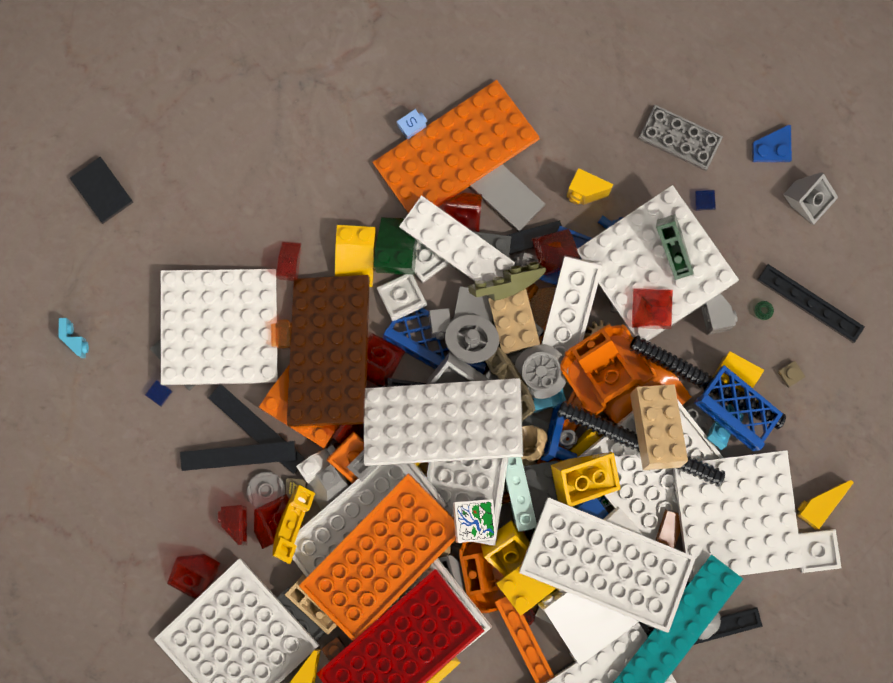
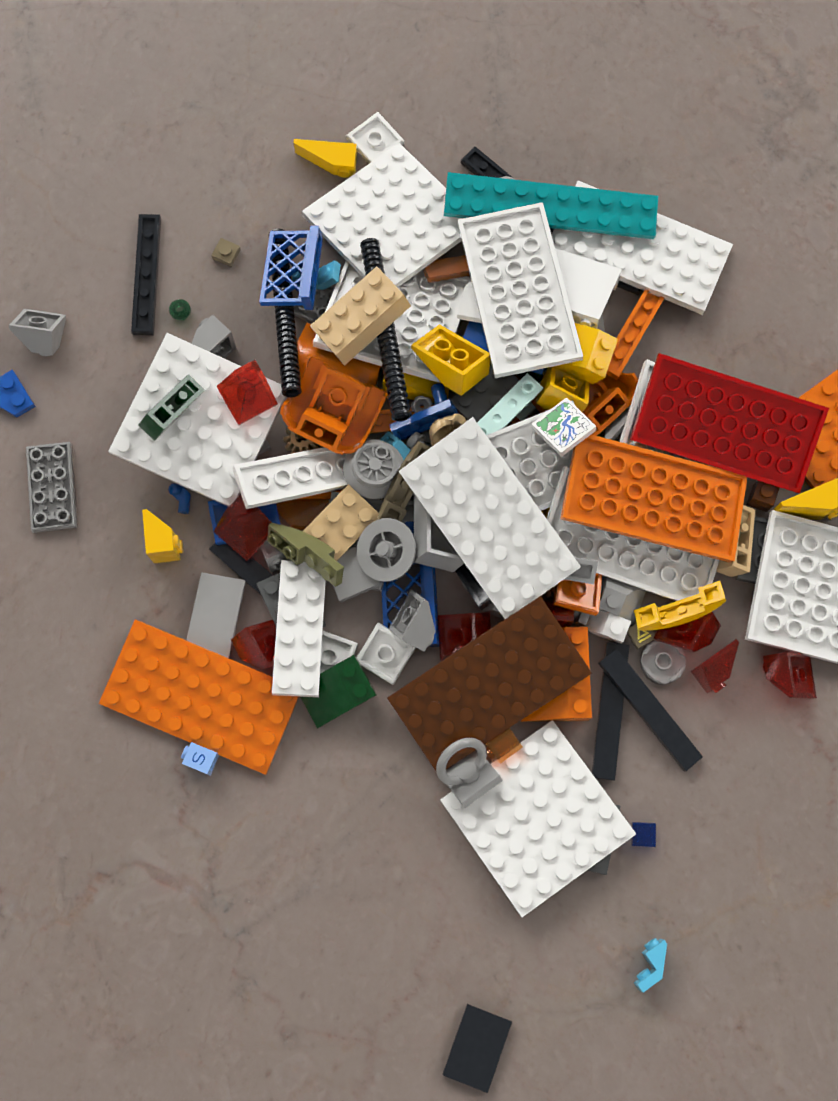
camera: 130 degrees left, 5 degrees down
(276, 296) = (469, 776): none -> light grey tile
(289, 261) = (422, 791): clear red slope -> none
(355, 251) = (371, 729): yellow slope -> none
(407, 324) = (414, 622): none -> light grey slope
(439, 322) = (389, 596): light grey brick -> none
(542, 417) = (415, 438): none -> light grey plate
(705, 200) = (102, 426): clear blue tile -> none
(742, 368) = (251, 288): yellow slope -> none

